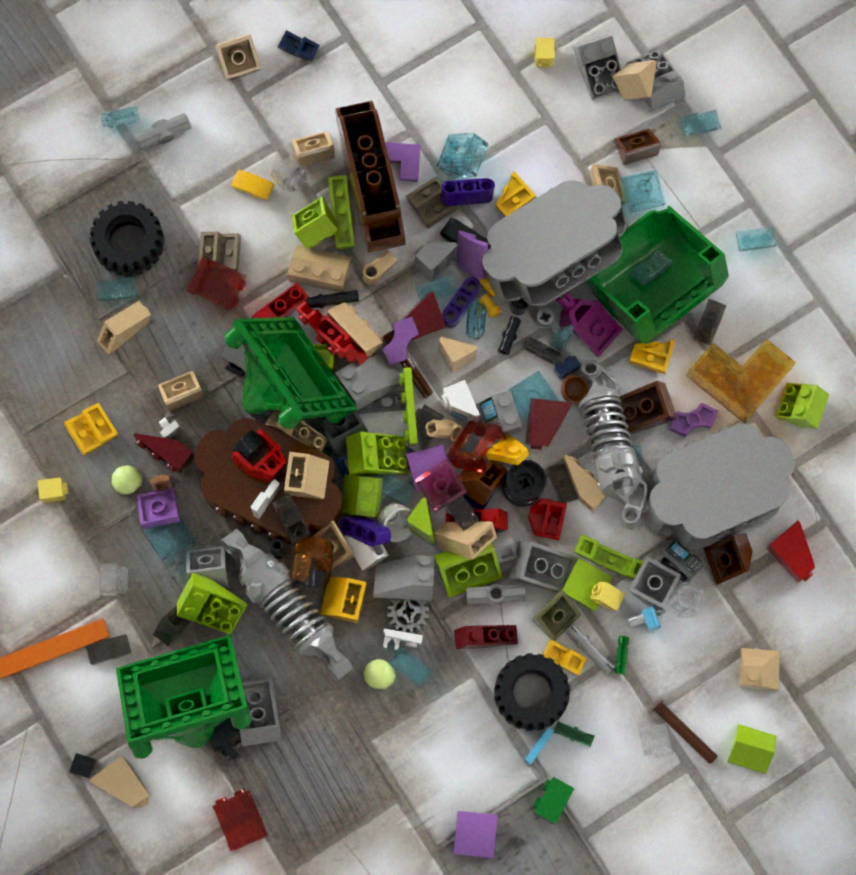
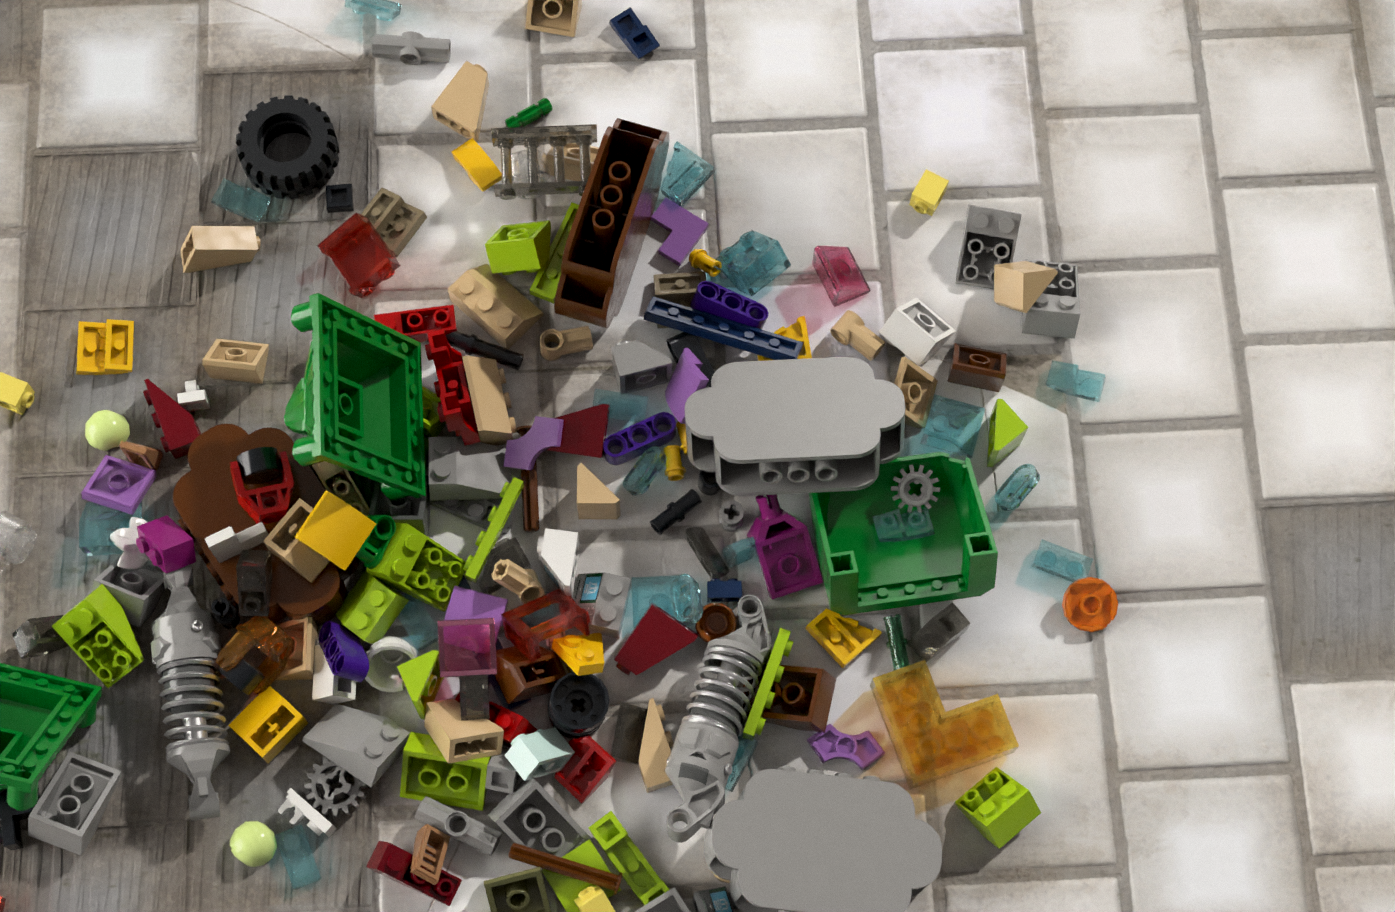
camera: 30 degrees right, 5 degrees down
(177, 253) = (339, 198): none -> black tile
(192, 538) = (126, 540): none -> white plate
(216, 526) = (166, 544): none -> magenta brick
(218, 148) = (464, 101): none -> tan slope
(264, 135) = (529, 114): none -> green axle
(284, 149) = (532, 139): none -> clear smoke fence
(323, 459) = (335, 530): none -> yellow slope
(343, 452) = (377, 542): none -> green piece
(390, 120) = (685, 174): none -> clear light blue wing
(433, 170) = (699, 259): none -> yellow pin
(472, 207) = (722, 330): none -> dark blue tile
(490, 618) = (439, 842): none -> medium nougat slope
(519, 133) = (839, 274): none -> clear pink slope
(519, 524) = (539, 753): none -> light aqua brick
(549, 165) = (852, 331): none -> tan piece
(552, 386) = (686, 605): none -> clear light blue plate
(576, 581) = (565, 867): none -> reddish brown axle
(588, 144) = (916, 331): none -> white slope
(628, 400) = (764, 695): none -> lime plate
(648, 249) = (926, 490): none -> light grey gear
(677, 178) = (1005, 432): none -> lime slope
(687, 341) = (896, 641): none -> clear green pin
(704, 207) = (1017, 487): none -> clear light blue plate
(786, 255) = (1090, 604): none -> orange tile

